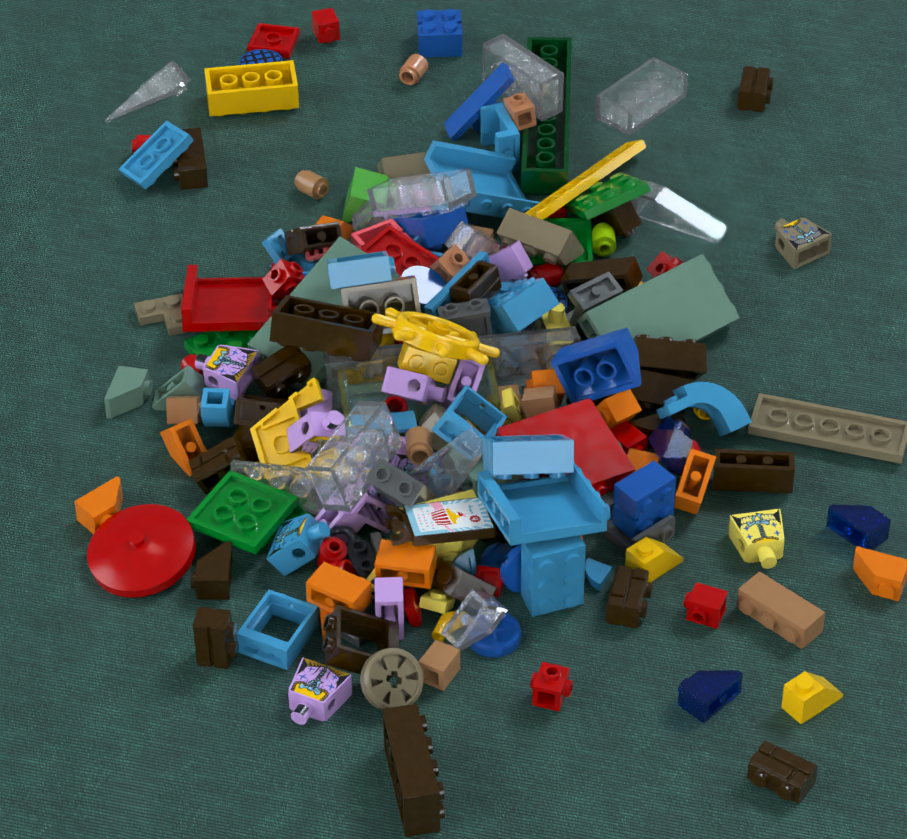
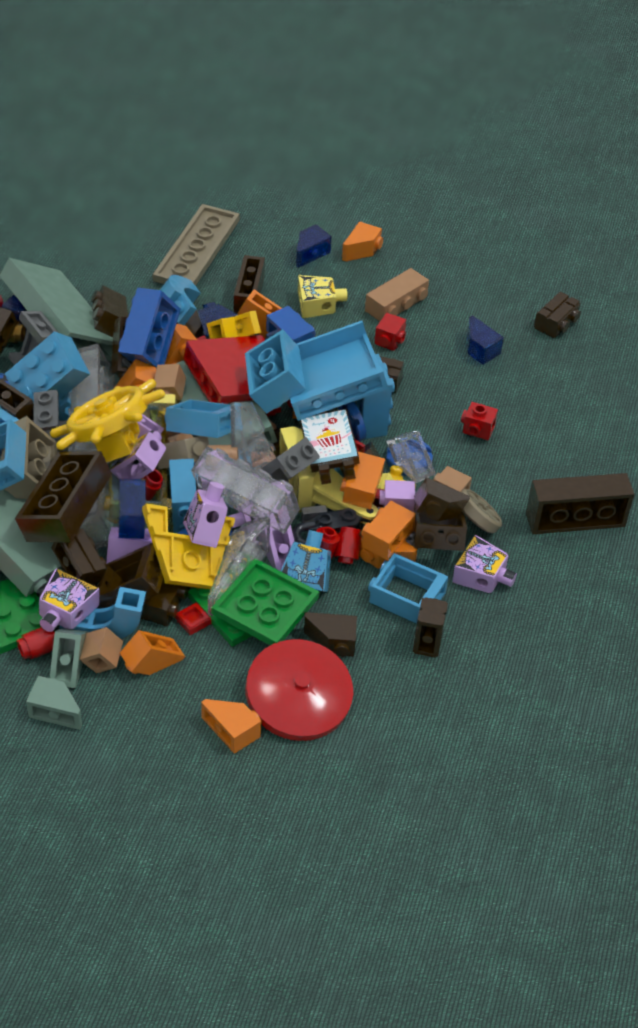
camera: 90 degrees left, 5 degrees up
(215, 463) = (193, 620): dark brown brick -> none
(332, 380) = (130, 502): none -> clear blue slope
(365, 616) = (439, 501): none -> dark brown slope
(640, 444) = (237, 326): none -> yellow brick
(808, 696) = (484, 293): yellow slope -> none

